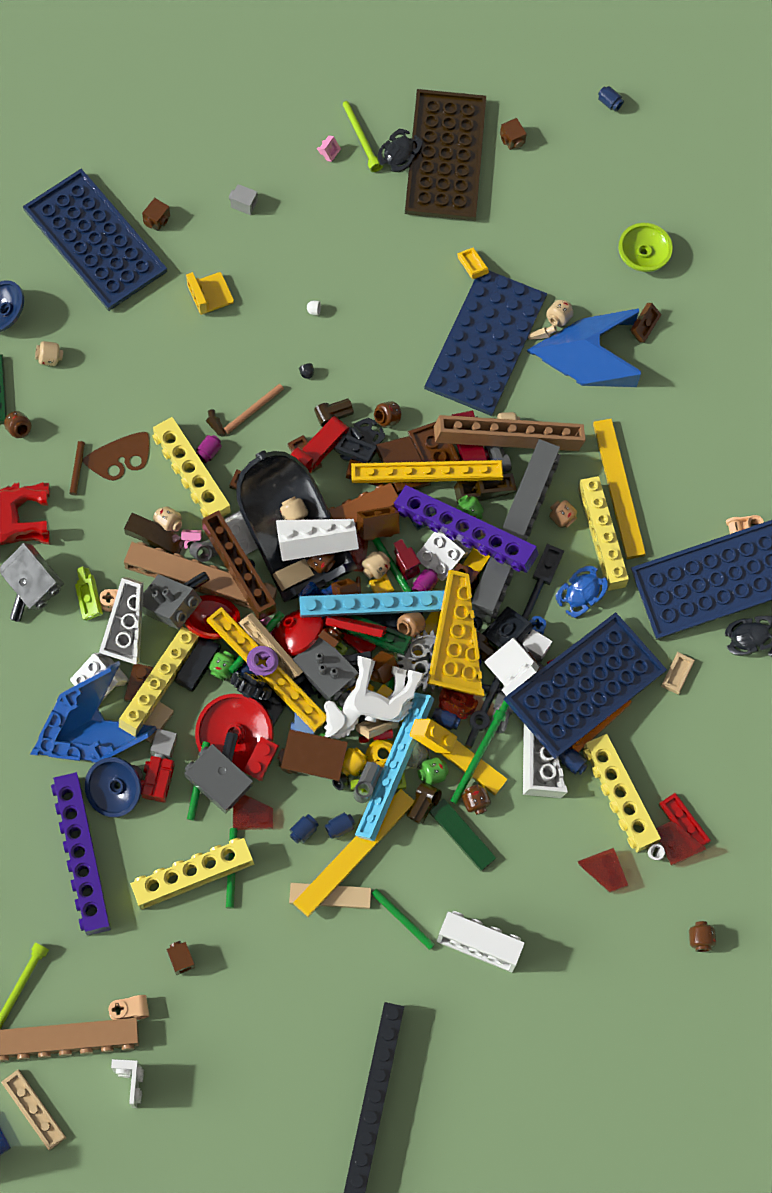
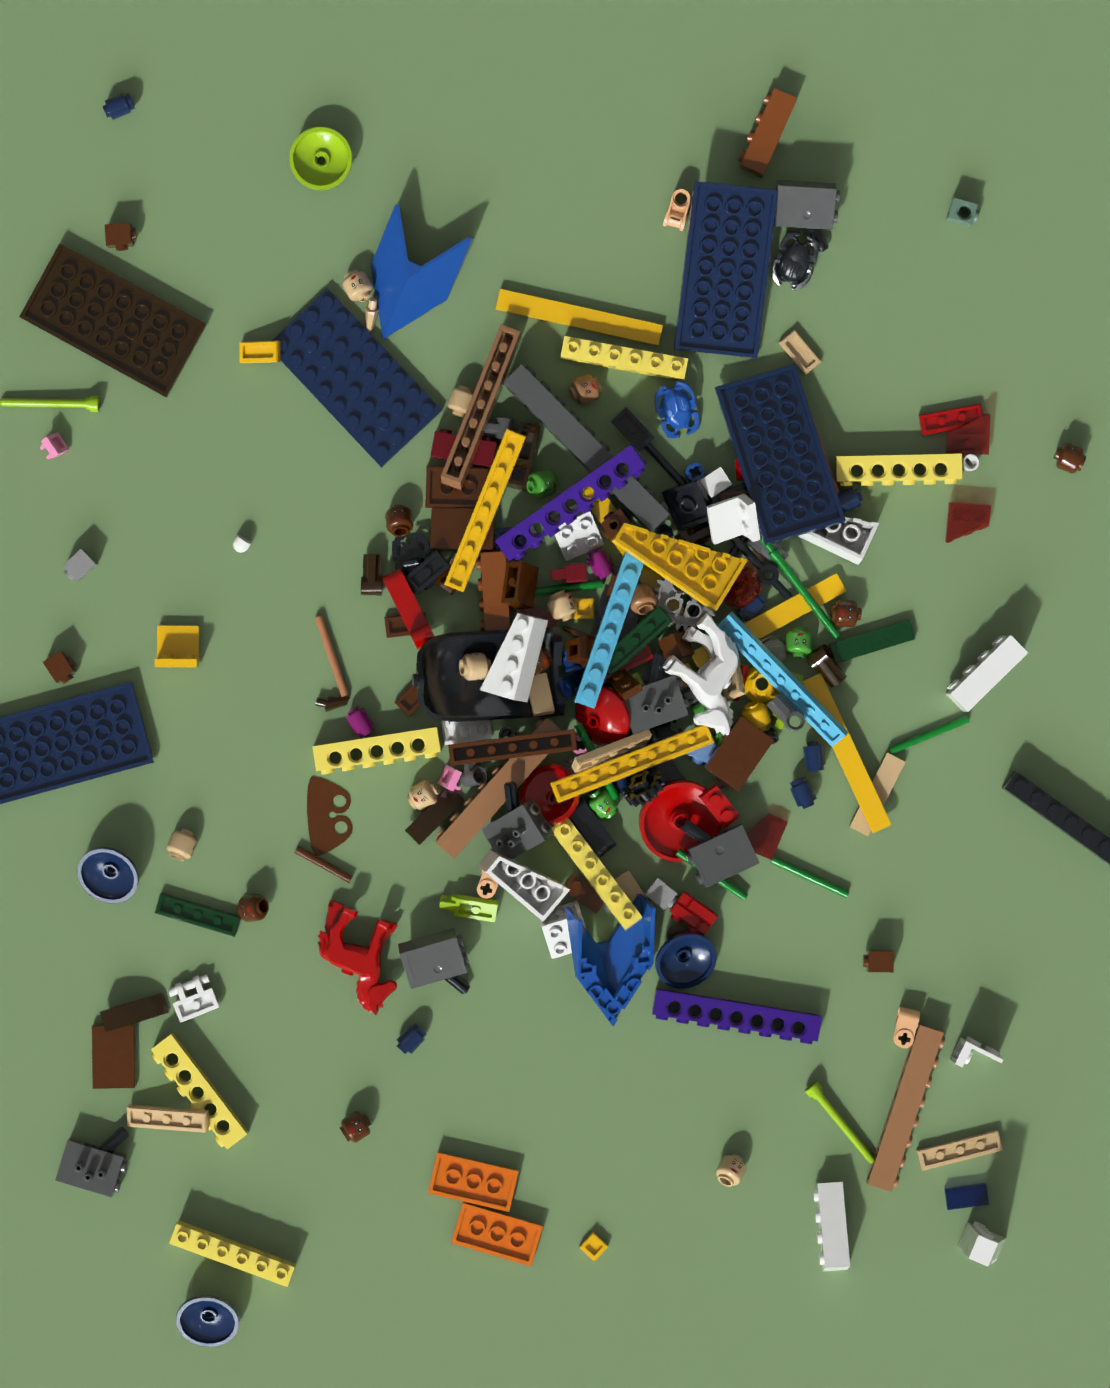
camera: 65 degrees left, 20 degrees up
(147, 898) = (805, 970): light yellow brick -> none
(263, 653) = (630, 757): medium lavender gear -> none
(307, 370) = (313, 582): black hinge -> none
(355, 625) = (626, 655): red tile -> none
(399, 151) = (91, 371): black shield -> none
(433, 736) = (771, 630): yellow brick -> none
(645, 322) = (406, 199): reddish brown plate -> none

